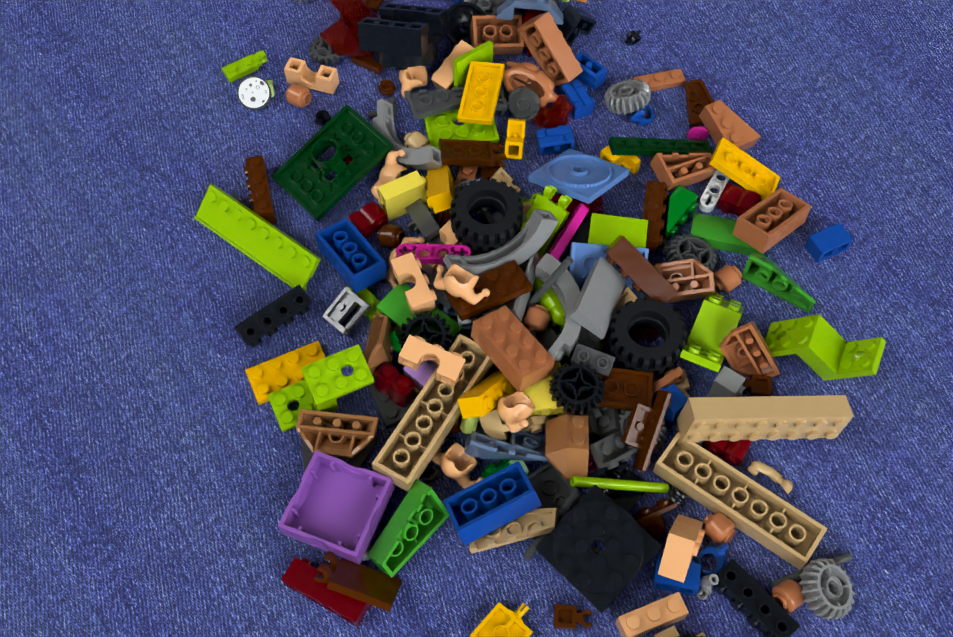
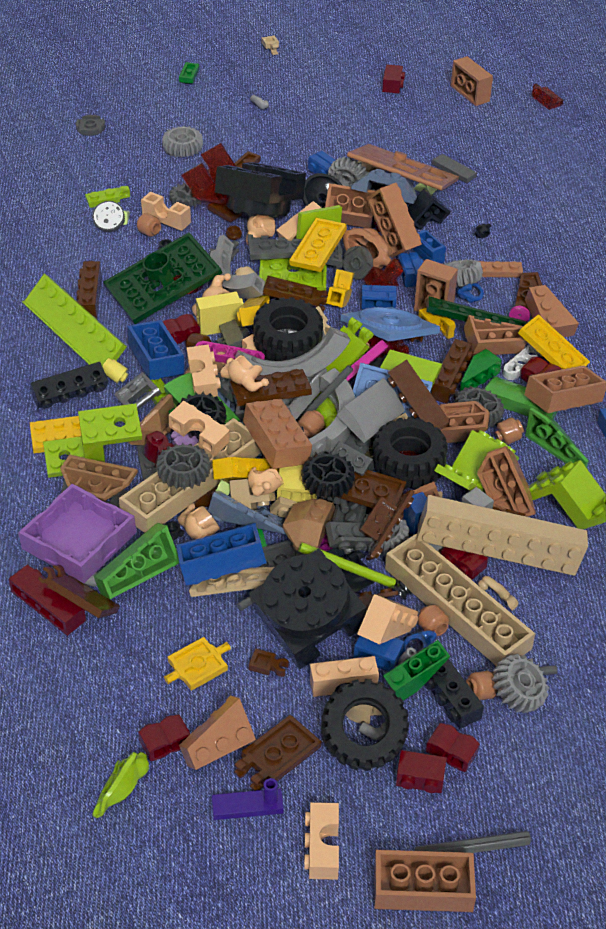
camera: 10 degrees right, 15 degrees down
(315, 287) = (115, 370): none -> light yellow brick
(428, 400) = (183, 466): none -> dark grey gear
(612, 119) = (434, 281): none -> nougat brick
(725, 598) = (416, 671): none -> green slope

